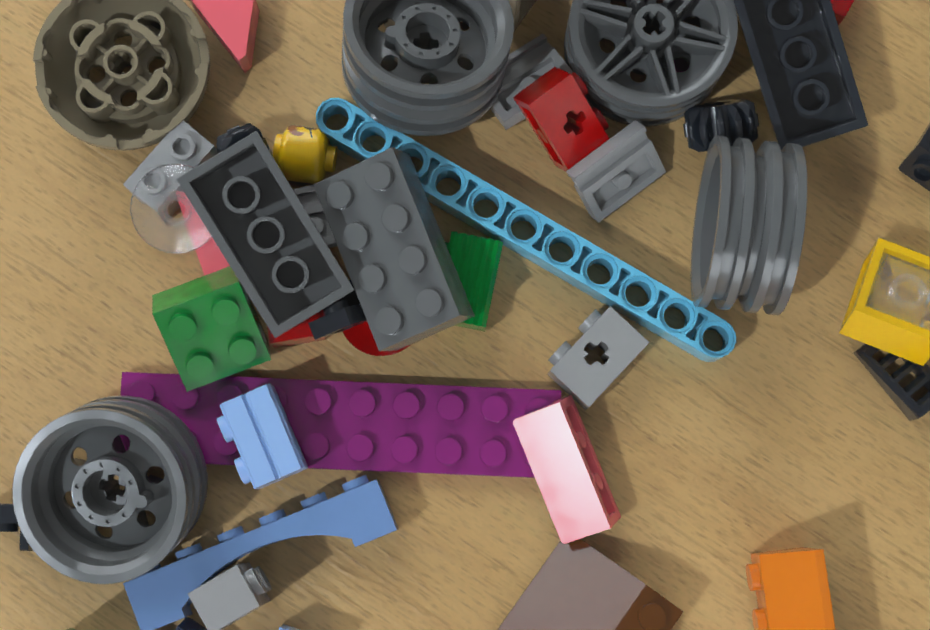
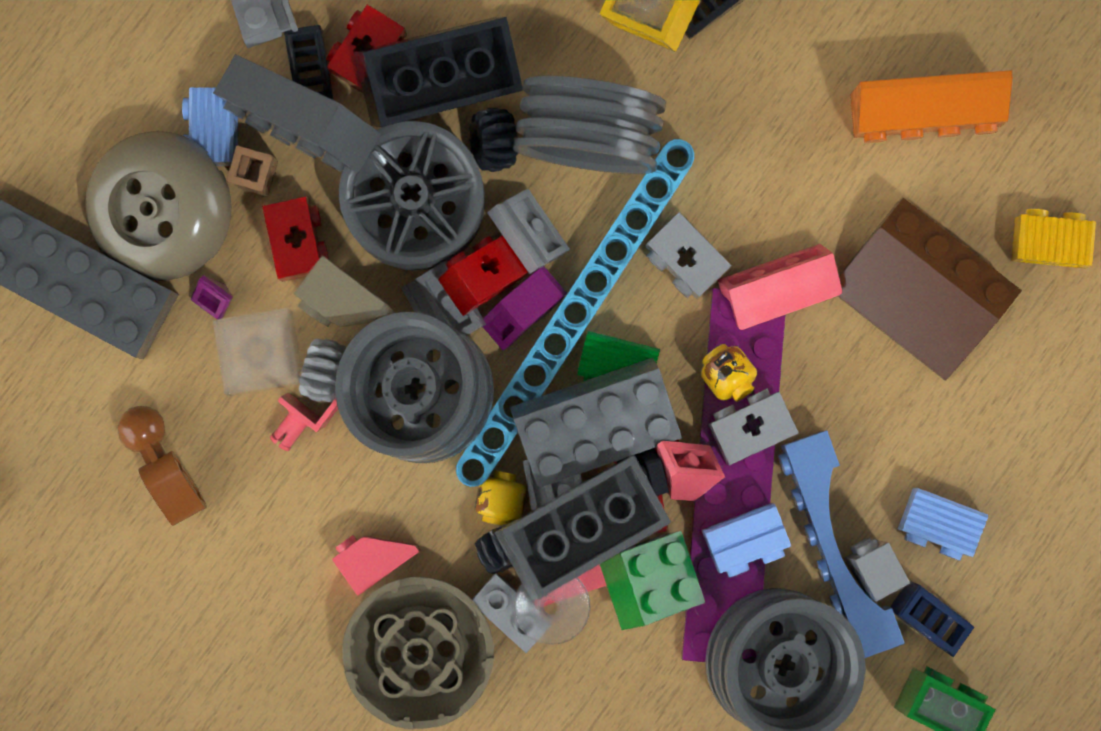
camera: 85 degrees left, 5 degrees up
(344, 364) = (689, 469): none -> coral slope
(374, 423) = (774, 427): none -> light grey brick
(460, 407) = (728, 373): none -> yellow head
(527, 169) = (523, 307): none -> magenta slope

